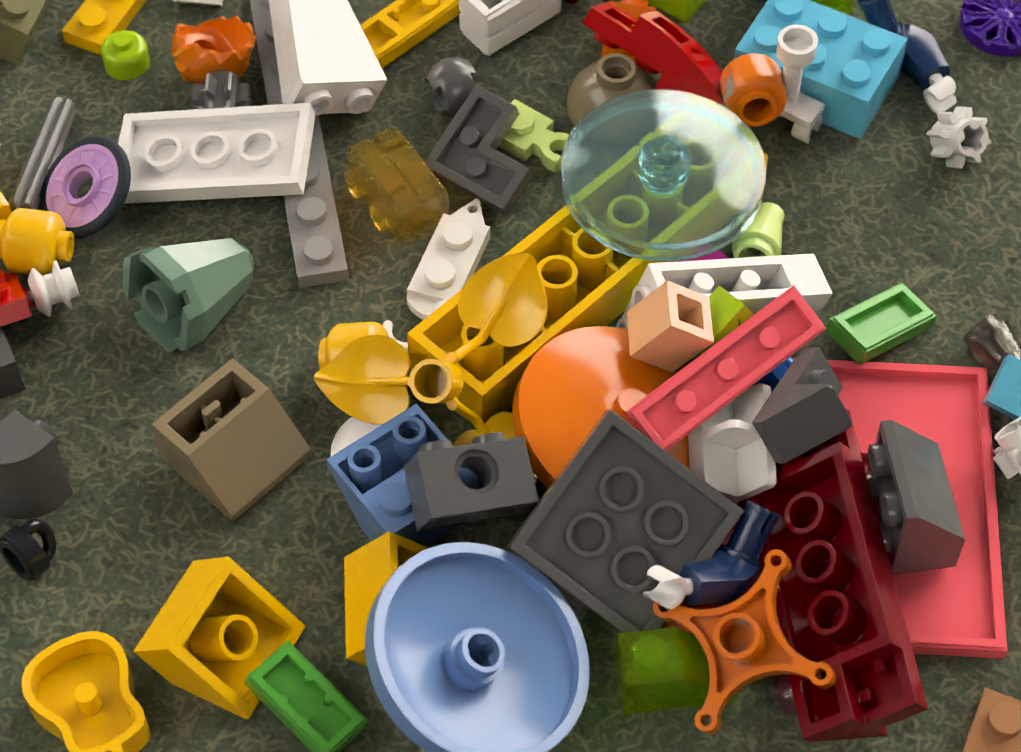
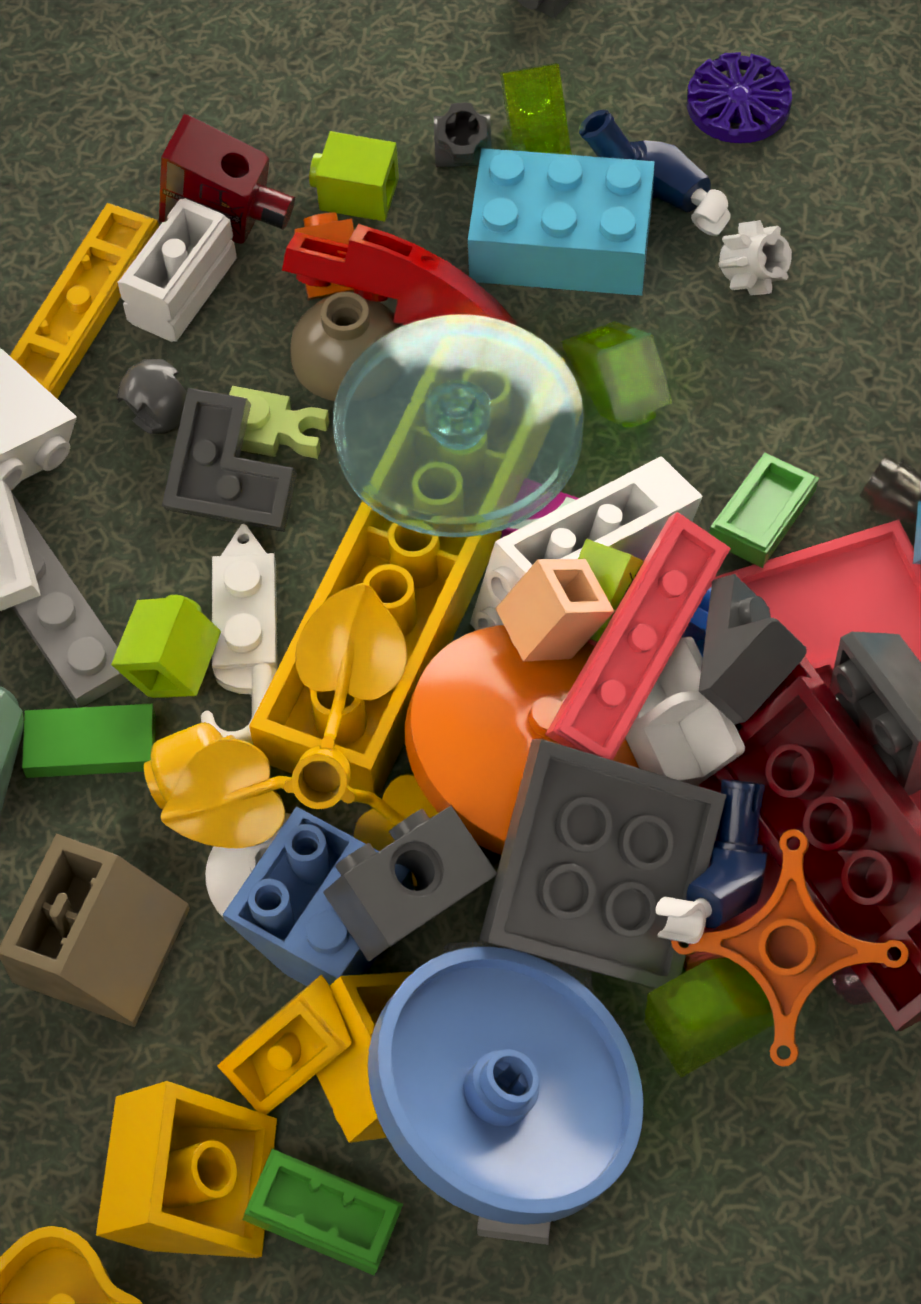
camera: 20 degrees left, 5 degrees up
(292, 309) = (88, 740): none -> bright green tile
(332, 572) = (288, 1048): none -> yellow slope
(378, 262) = (166, 647): none -> lime brick
(396, 185) = (141, 540): clear yellow brick -> none
(753, 89) = (512, 283): orange head -> none
(763, 234) = (596, 461): yellowish green cone -> none
(796, 50) = (550, 223): white bar -> none
(813, 187) = (620, 372): none -> clear neon green slope

